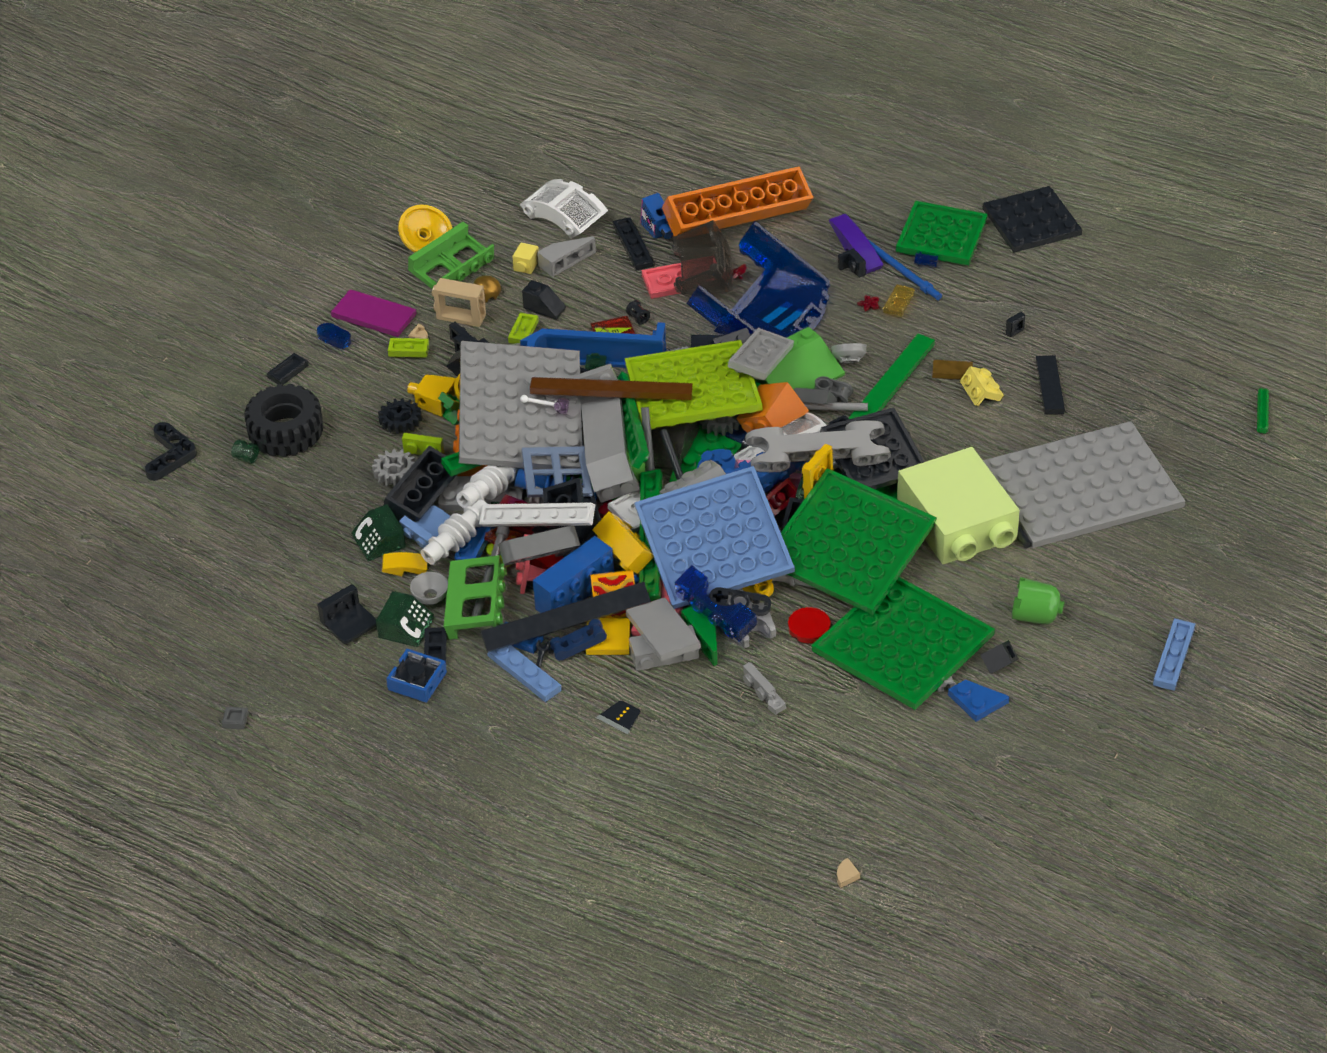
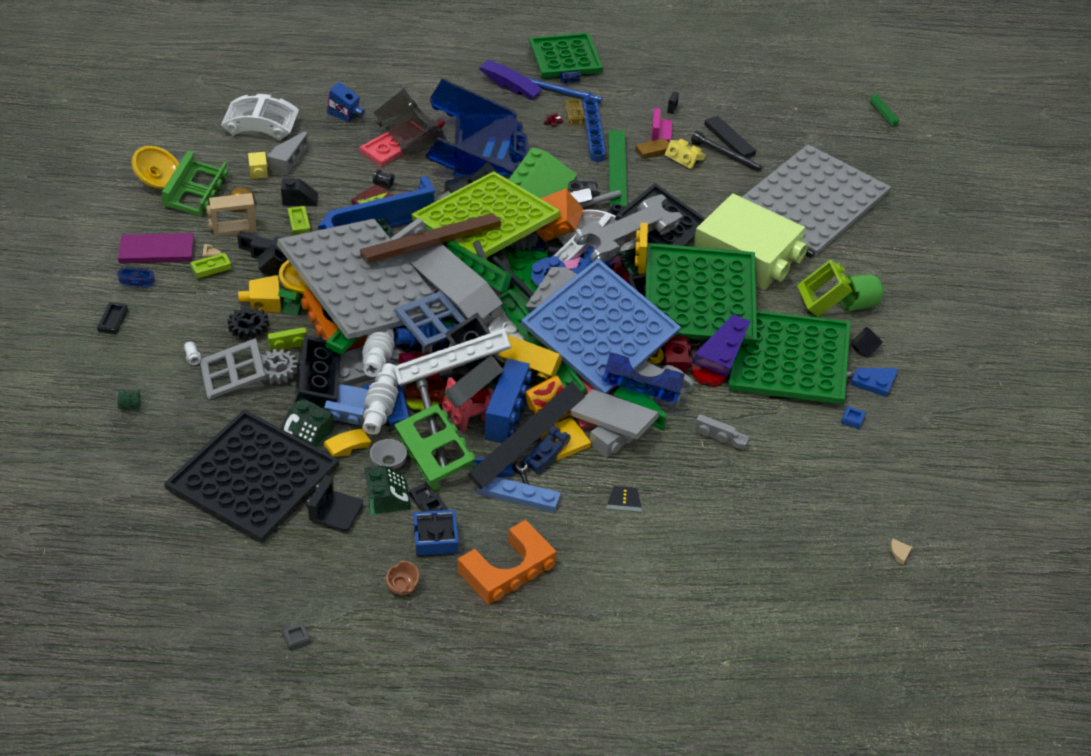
camera: 35 degrees left, 0 degrees up
(159, 467) = (65, 419): black beam -> none
(287, 436) = (148, 343): black tyre -> none
(300, 560) = (252, 475): none -> black plate
(329, 431) = (193, 356): none -> white pin
(347, 470) = (232, 369): none -> light grey window
(356, 704) = (402, 578): none -> nougat hair
(485, 737) = (493, 582): none -> orange arch
(560, 405) = (398, 264): hinge -> none
(633, 243) = (335, 130): black tile -> none
(739, 201) = (403, 72): orange brick -> none
(747, 595) = (662, 363): black beam -> none
(760, 354) = (524, 175): light grey plate -> none
(785, 595) = (677, 353): none -> dark red brick
(827, 603) = (723, 346): none -> dark purple wedge
(849, 352) = (573, 158): light grey piece -> none
(852, 260) = (520, 93): black bracket -> none
(900, 326) = (596, 129): none -> blue beam
(918, 728) = (853, 417): none -> blue tile
(979, 348) = (660, 127): none -> dark pink panel
(994, 583) = (816, 280): none -> lime window
(1011, 374) = (699, 138): none -> black piece
(1032, 219) = (619, 28): black plate -> none
(1174, 654) = (978, 295): medium blue plate -> none

